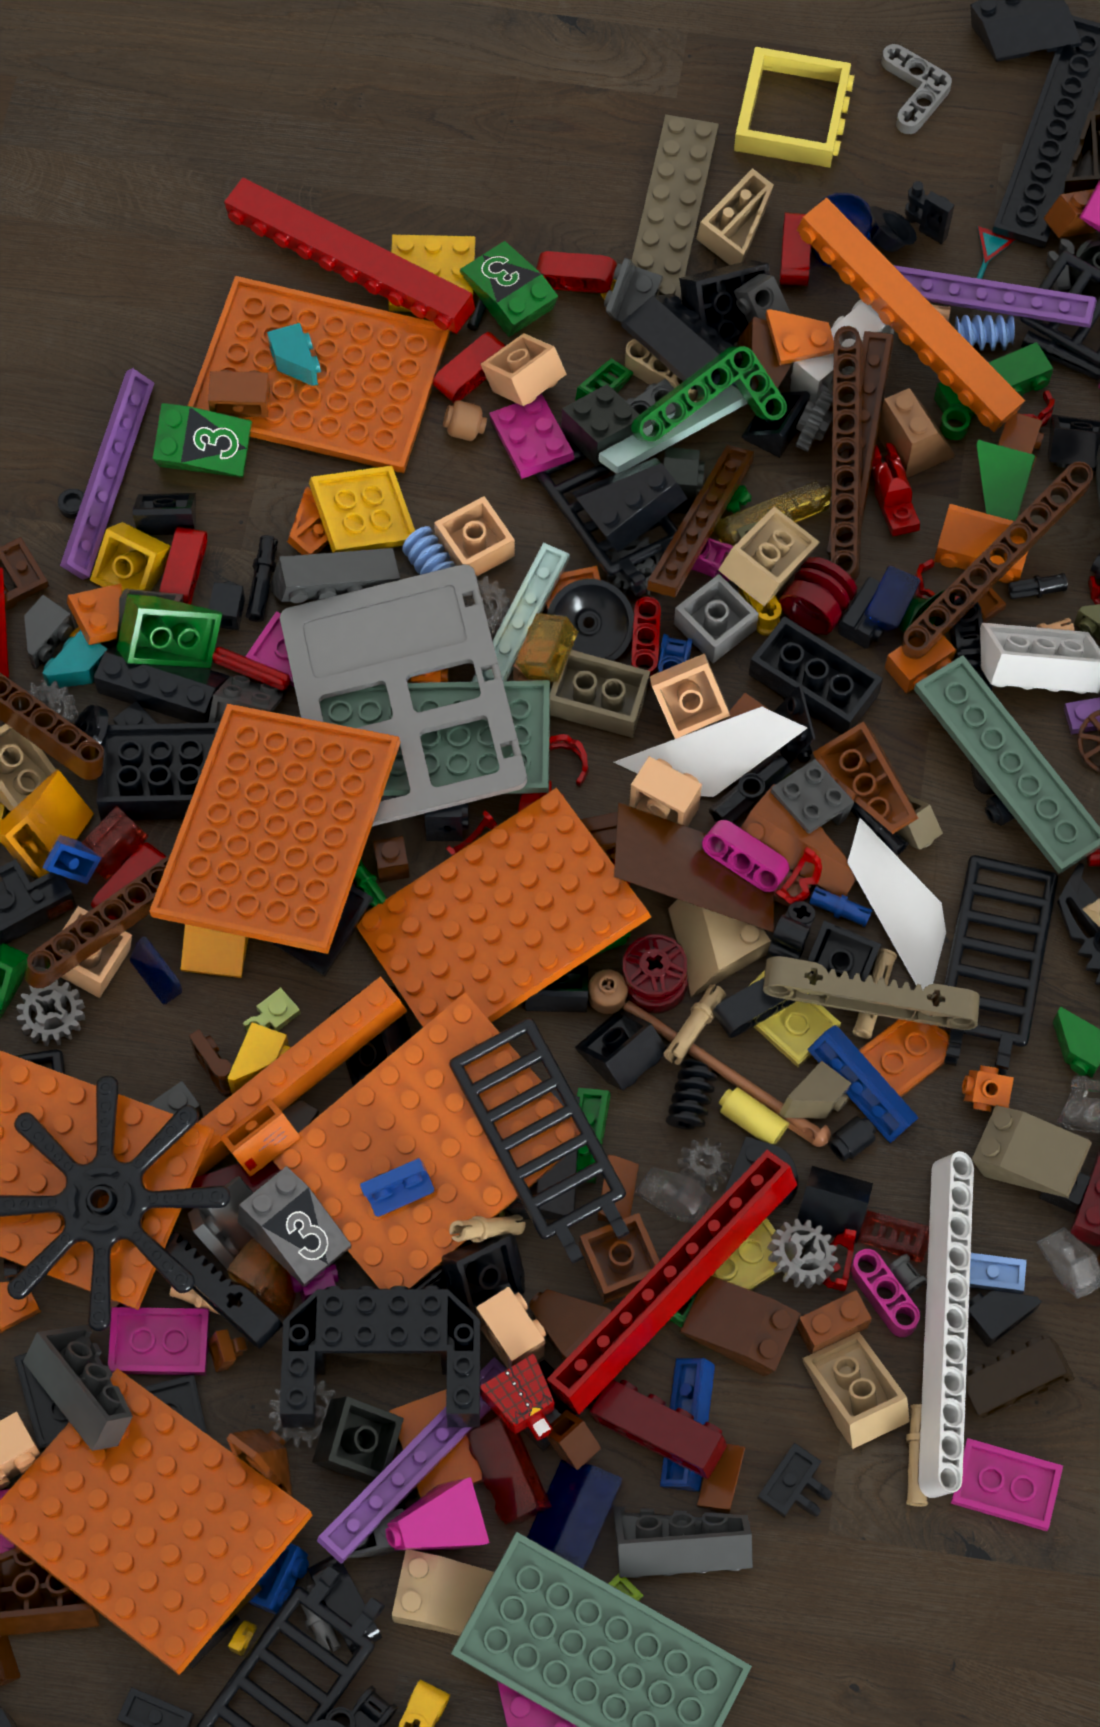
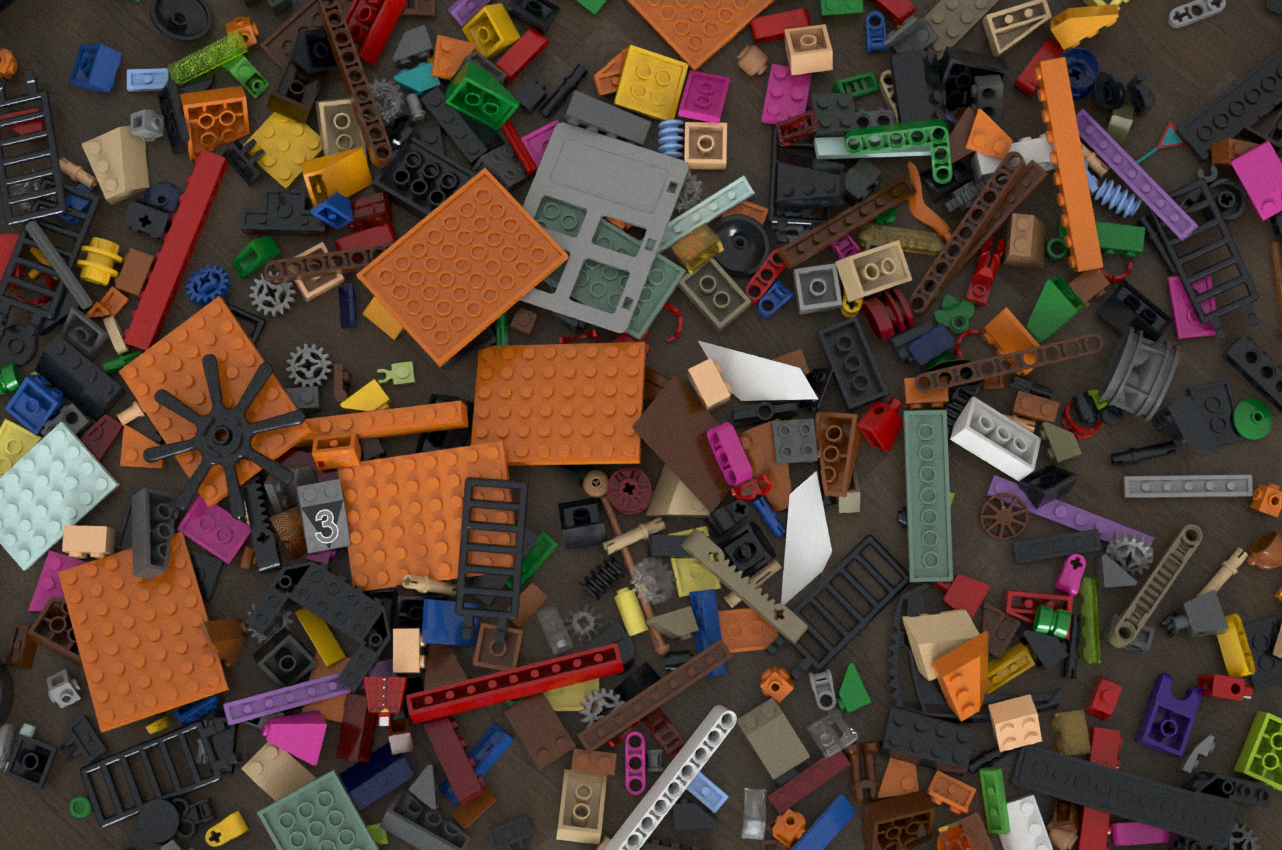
camera: 35 degrees right, 15 degrees up
(84, 1668) = (63, 688): none -> light grey brick
(90, 695) = (415, 106): none -> light grey pin
(163, 1061) = (318, 365): none -> light grey gear
(382, 1388) = (321, 637): none -> yellow slope
(398, 1187) = (392, 532): blue bracket -> none
(437, 486) = (704, 97): none -> dark pink plate
(539, 1265) = (444, 626): none -> blue tile
(578, 458) = (788, 139): none -> clear red slope
(589, 318) = (875, 35): none -> blue piece
(650, 1486) = (427, 787): none -> dark grey slope
(689, 696) = (764, 331): light nougat brick -> none
(755, 1061) = (654, 580): none -> clear gear
(777, 472) = (921, 210): none -> orange piece
(805, 180) = (1082, 22): none -> light orange slope
(855, 1189) = (654, 696): none -> reddish brown plate
(893, 554) = (953, 311): none -> green plate
(898, 721) = (881, 424): none -> red torso
(926, 254) = (1120, 123): none -> olive slope
(1042, 1059) = (822, 688): none -> light grey piece
(1056, 601) = (1034, 407): none -> dark orange brick

